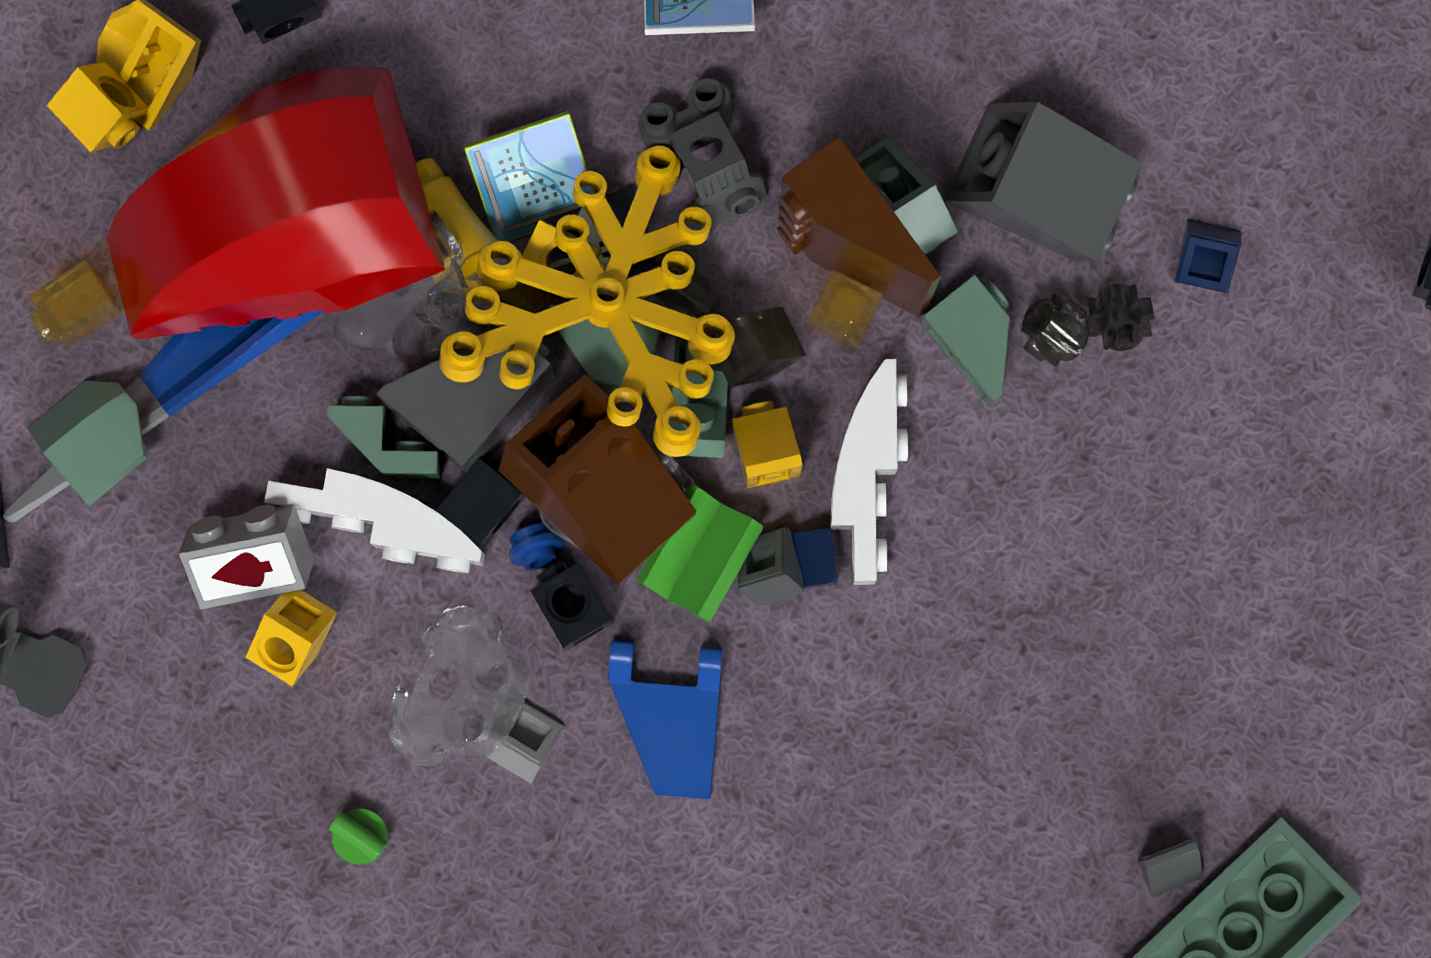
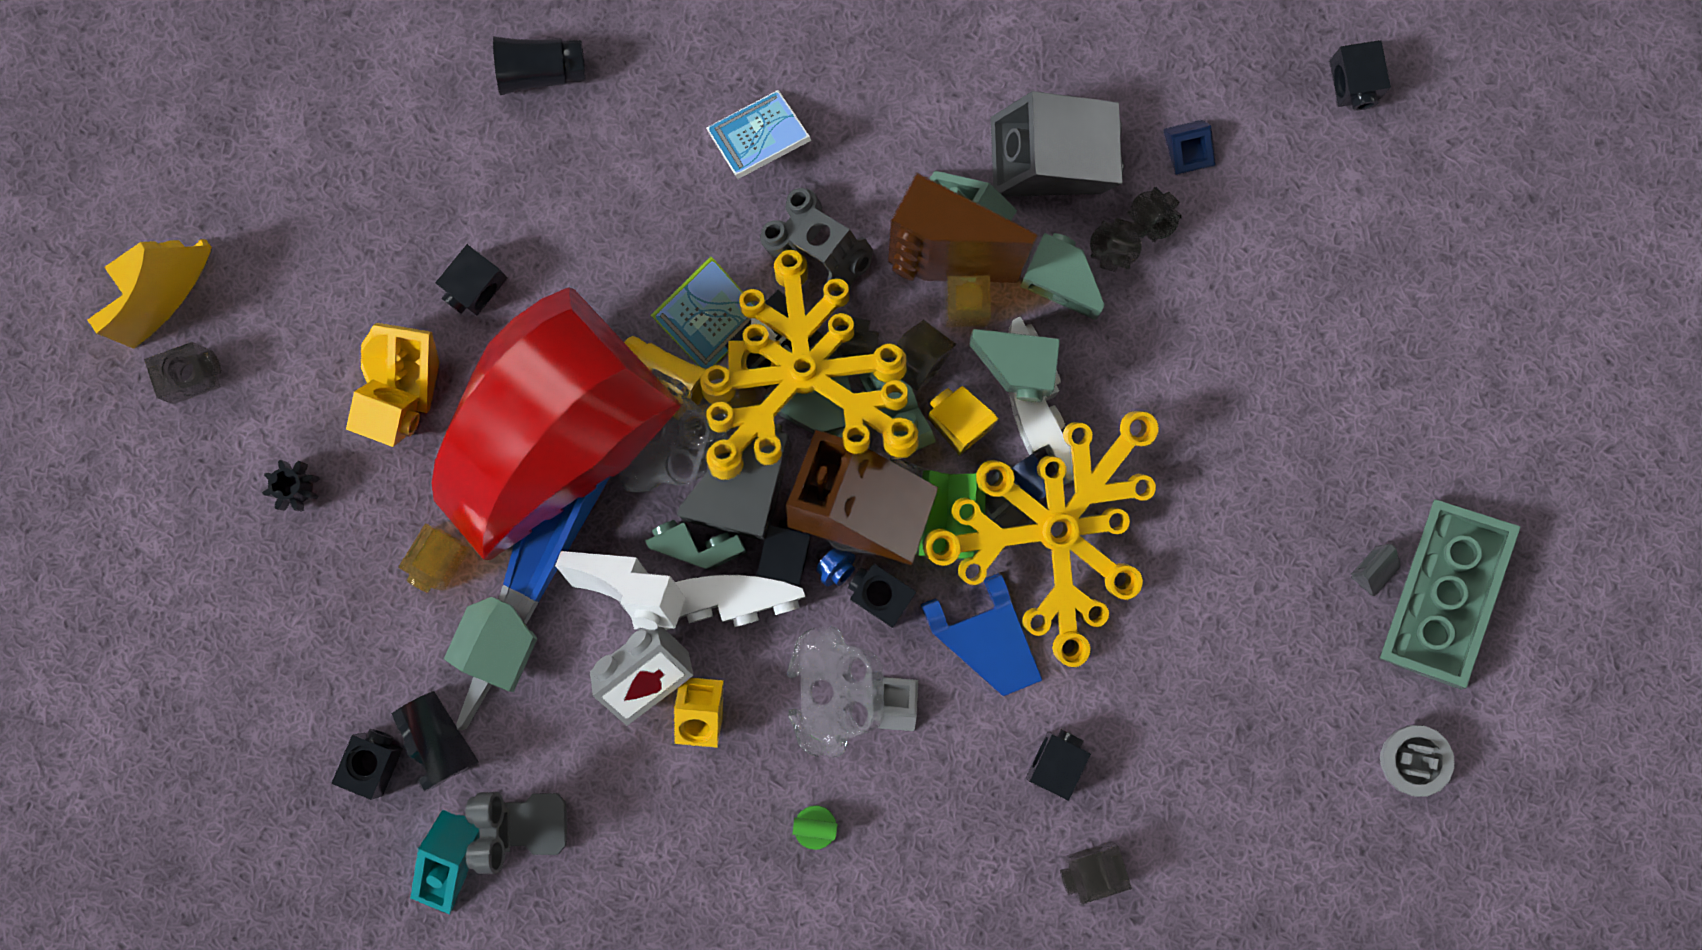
camera: 25 degrees left, 0 degrees up
(295, 471) = (646, 597): none -> white slope
(678, 903) = (1059, 764): none -> black brick
(864, 412) = (1019, 361): none -> sand green slope
(873, 601) = (1089, 489): none -> yellow plant

